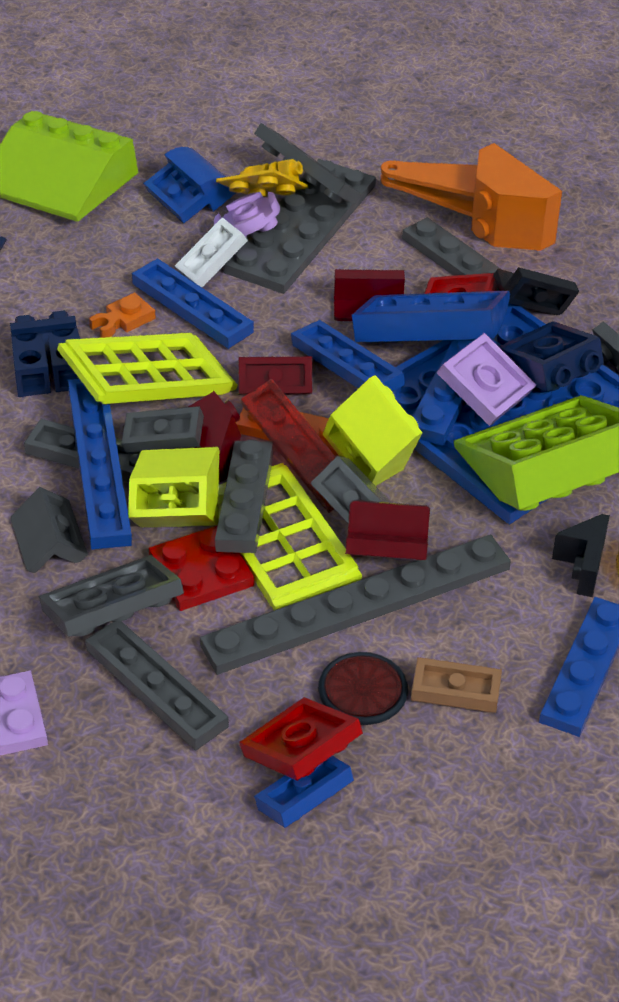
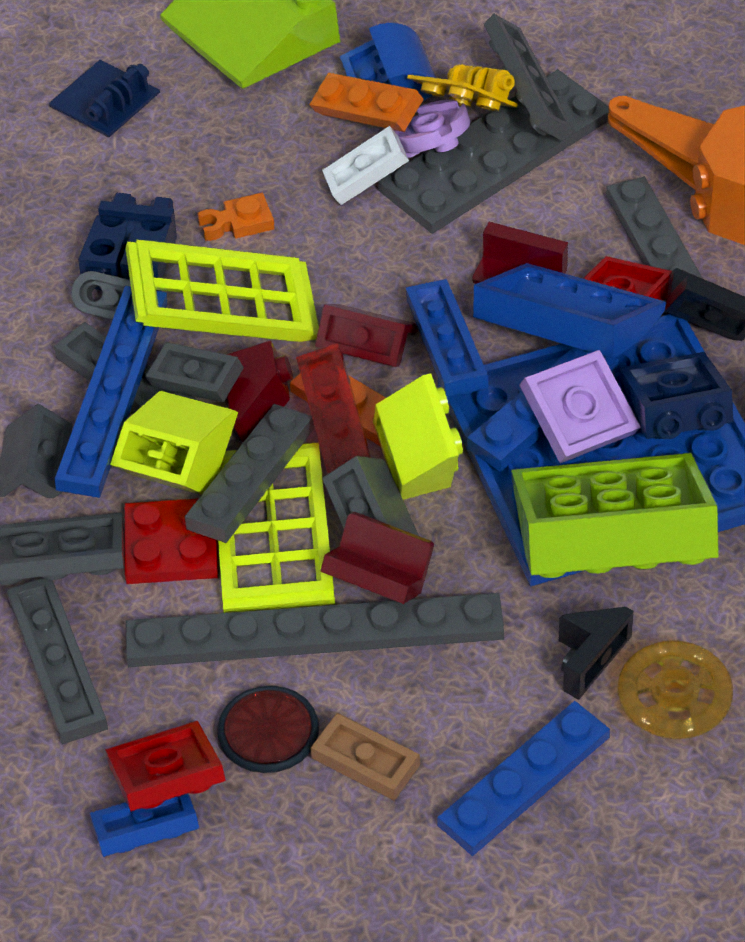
camera: 25 degrees right, 5 degrees up
(54, 395) = (111, 287): none -> dark grey plate
(187, 208) = (366, 101): none -> orange plate
(193, 303) = (319, 222): blue plate -> none

